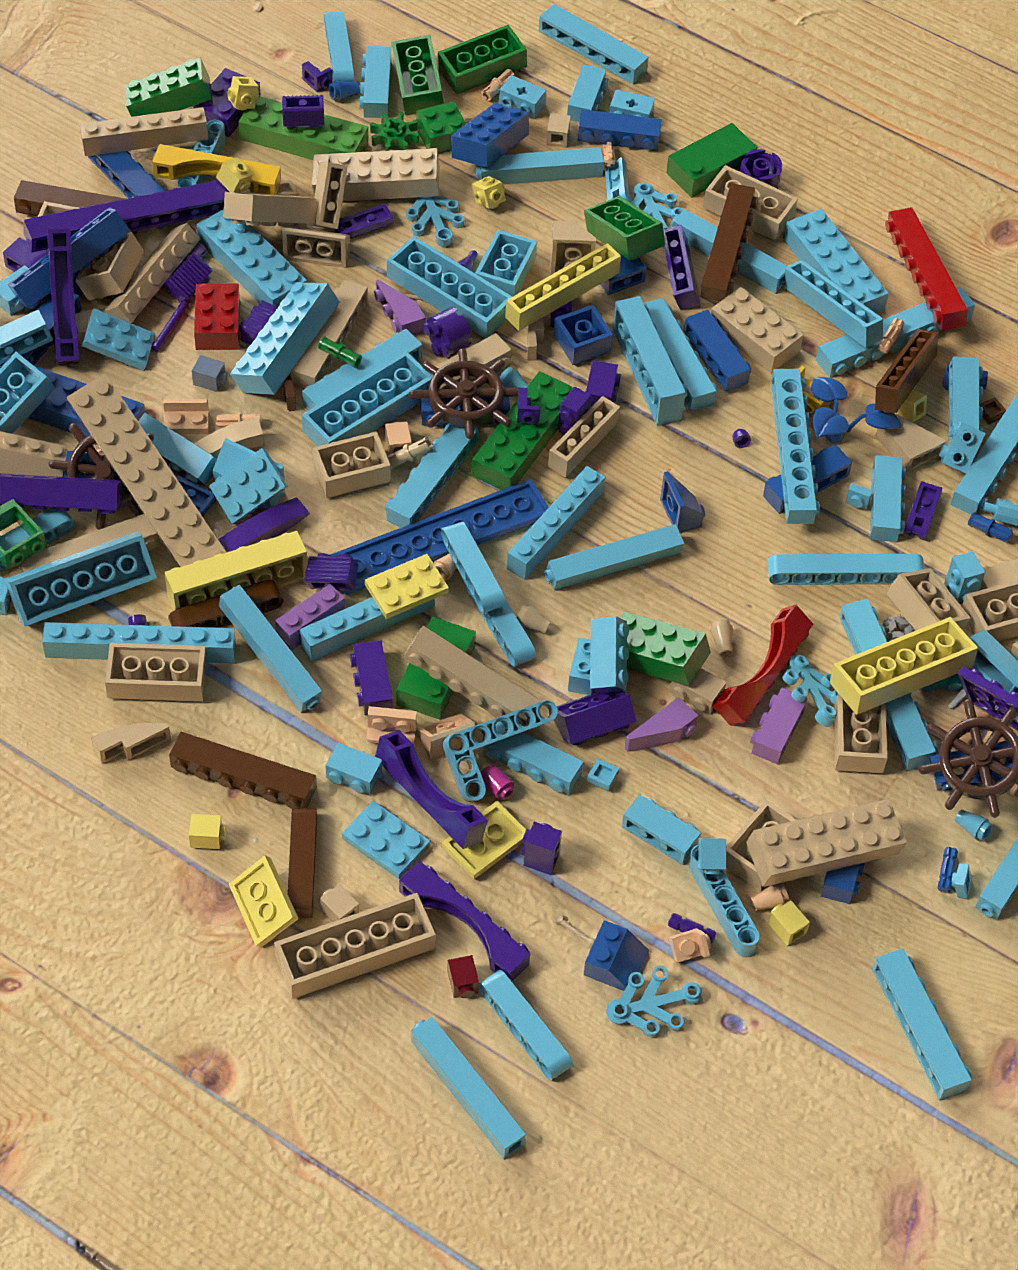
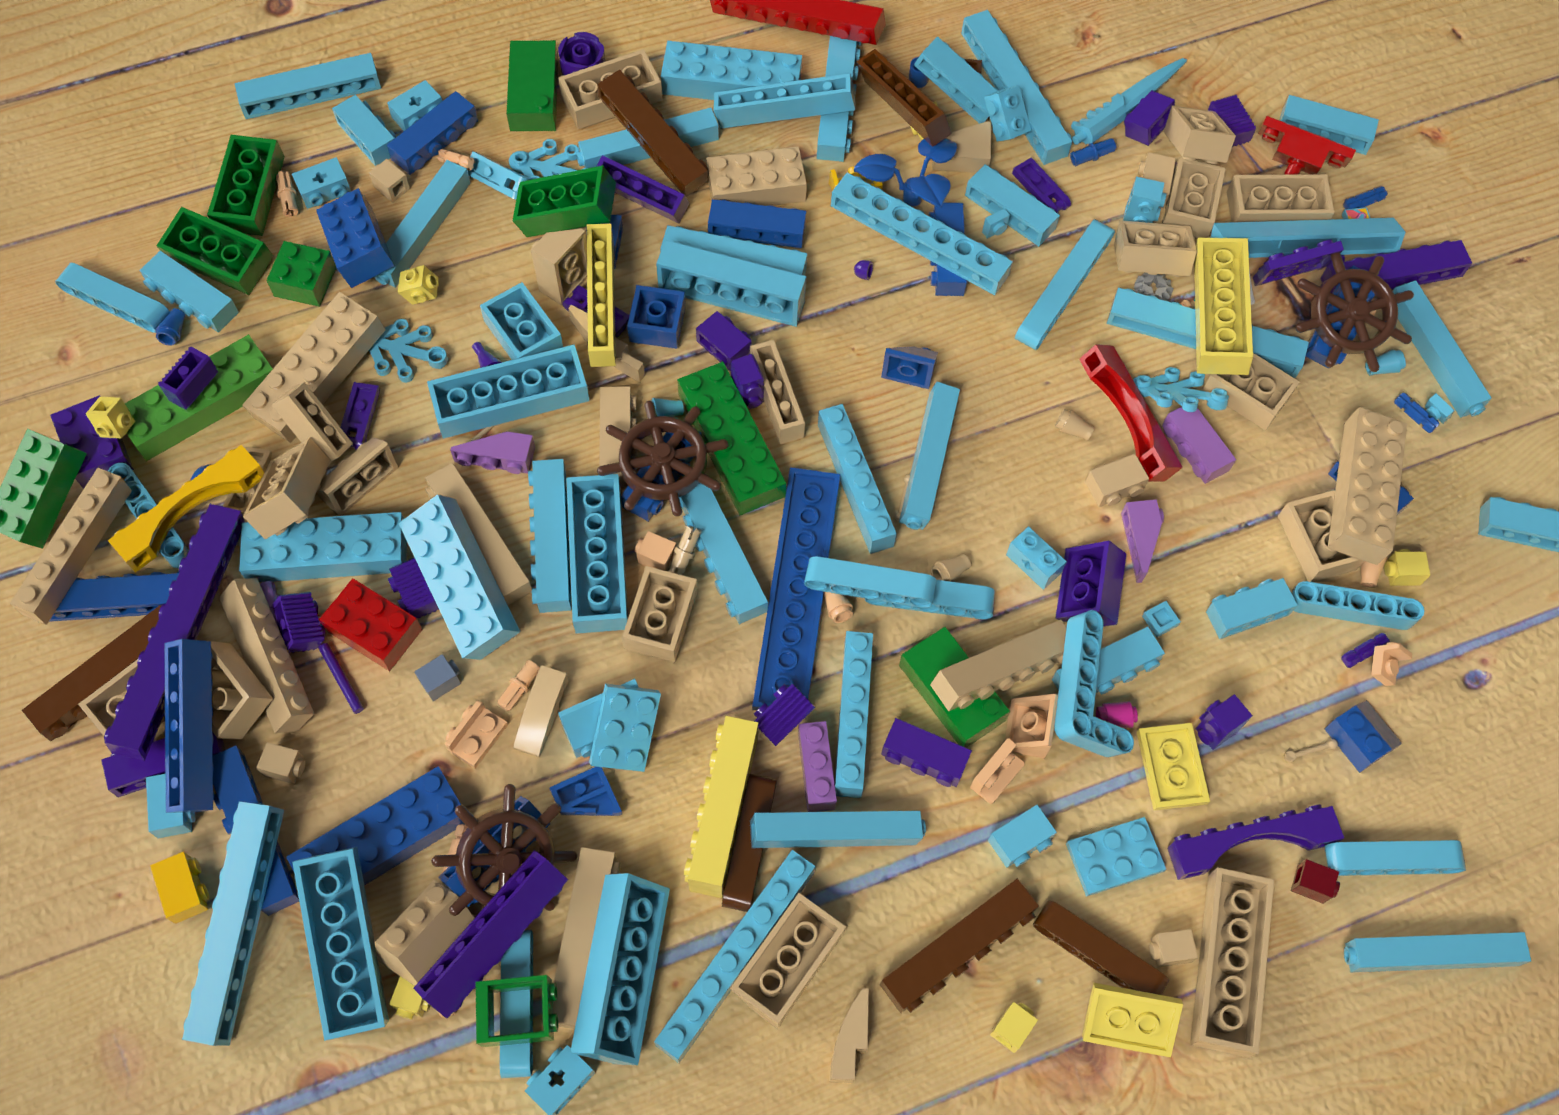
camera: 55 degrees left, 10 degrees up
(62, 296) = (207, 744): dark purple arch -> none
(118, 339) = (325, 740): medium azure plate -> none
(137, 620) = (707, 941): dark purple hinge -> none
(144, 472) = (551, 822): tan plate -> none
(179, 451) = (521, 768): medium azure brick -> none
(235, 175) = (219, 494): light yellow brick -> none
(264, 525) = (674, 743): dark purple slope -> none
(289, 395) = (526, 617): reddish brown tile -> none
(315, 78) = (132, 342): dark purple bracket -> none
(339, 352) = (519, 537): green pin -> none
(394, 132) = (269, 317): green gear -> none
(406, 586) = (857, 655): light yellow plate -> none
(447, 332) = (566, 427): dark purple brick -> none
(459, 820) = (1153, 777): dark purple arch -> none
(525, 412) = (721, 420): dark purple bracket -> none
(609, 654) = (1056, 528): medium azure brick -> none
(651, 1004) = (1425, 733): medium azure plant -> none
(665, 649) = (1066, 485): green brick -> none
(712, 855) = (1326, 583): medium azure brick -> none
(891, 335) = (860, 94): light nougat axle -> none

